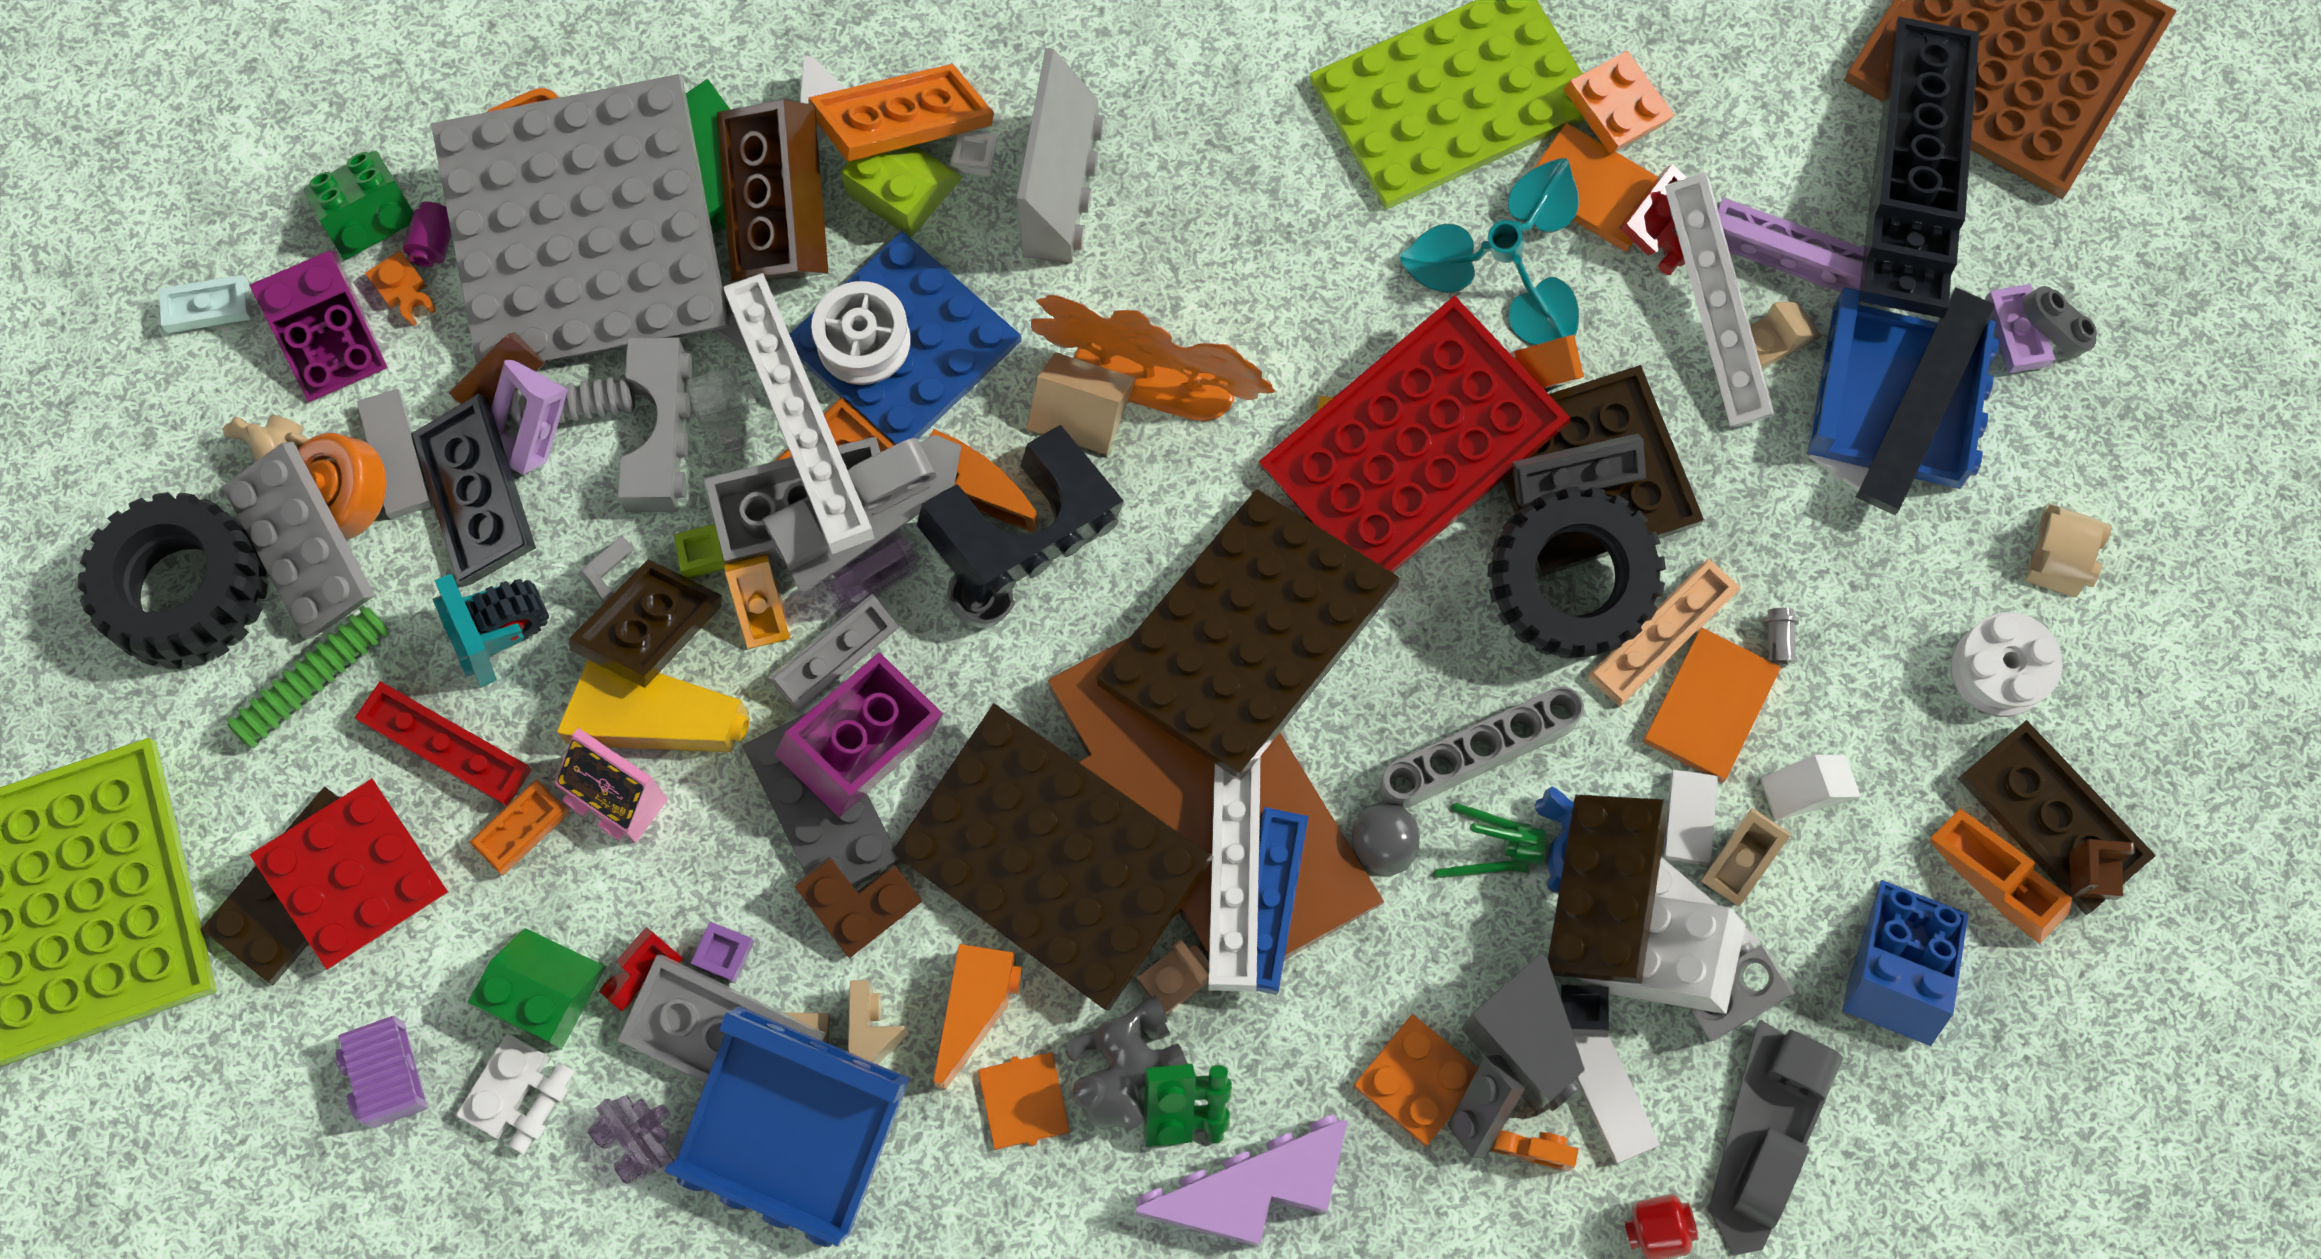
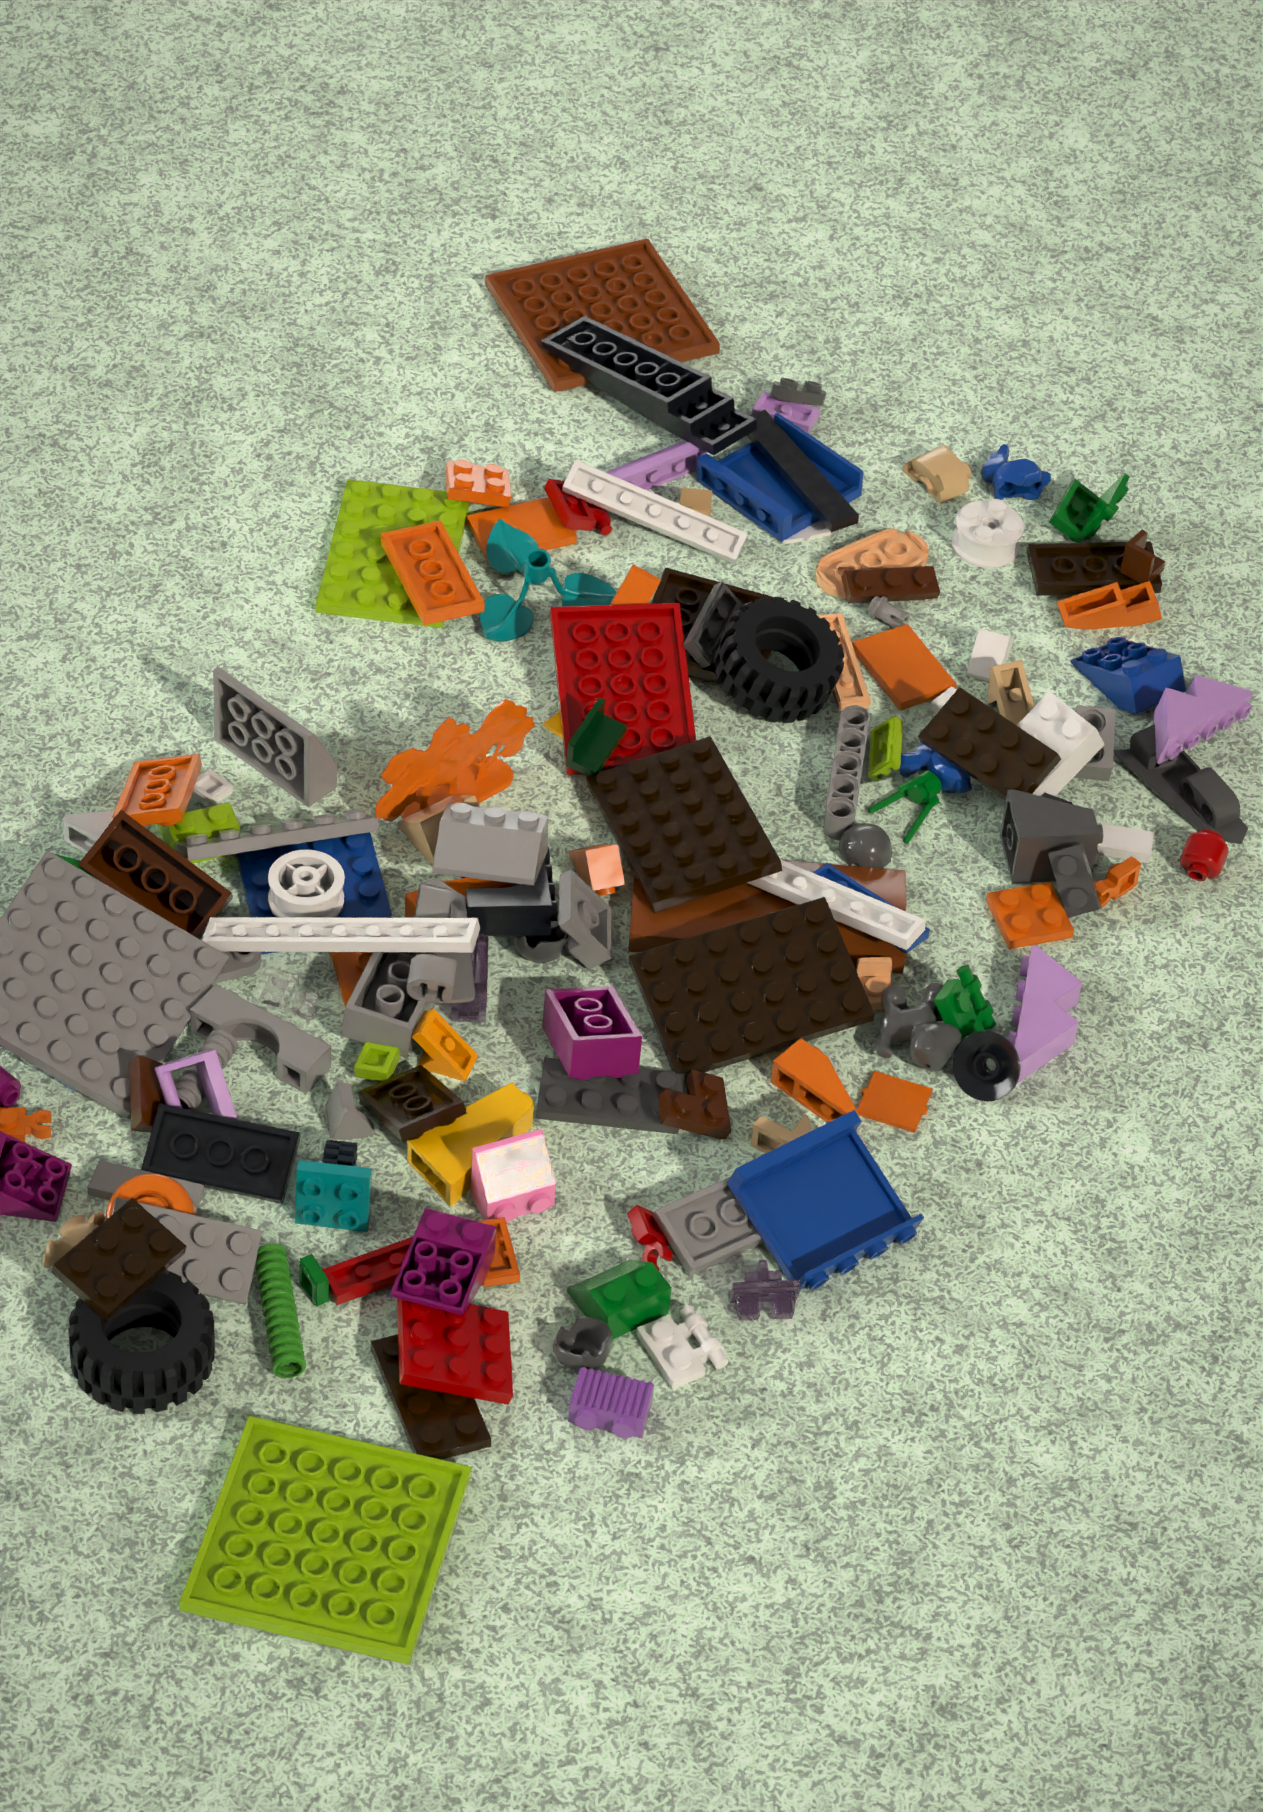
camera: 60 degrees left, 25 degrees down
(204, 498) = (118, 1259): none -> dark brown plate
(363, 680) = (313, 1280): none -> green tile
(423, 800) = (445, 1262): none -> magenta slope
(437, 995) = (584, 1344): none -> dark grey hair
(722, 952) = (671, 1187): medium lavender plate -> none
(833, 652) = (511, 1034): light grey tile -> none
(927, 257) = (265, 837): none -> light grey plate
(1020, 623) = (585, 920): none -> light grey plate
(1034, 468) = (491, 844): none -> light grey slope
(1121, 1178) = (972, 1070): none -> black dish
(1133, 583) = (599, 867): none -> slope
(1302, 465) = (594, 741): none -> dark green panel
(1430, 148) = (432, 572): none -> orange plate
(1553, 766) = (885, 748): none -> lime tile
(1828, 611) = (893, 583): none -> reddish brown plate
(1854, 569) = (870, 553): none -> light nougat tile
(1860, 1081) = (1196, 715): none -> lavender slope
(2133, 635) = (1014, 477): none -> blue animal
(2145, 750) = (1082, 510): none -> green bracket

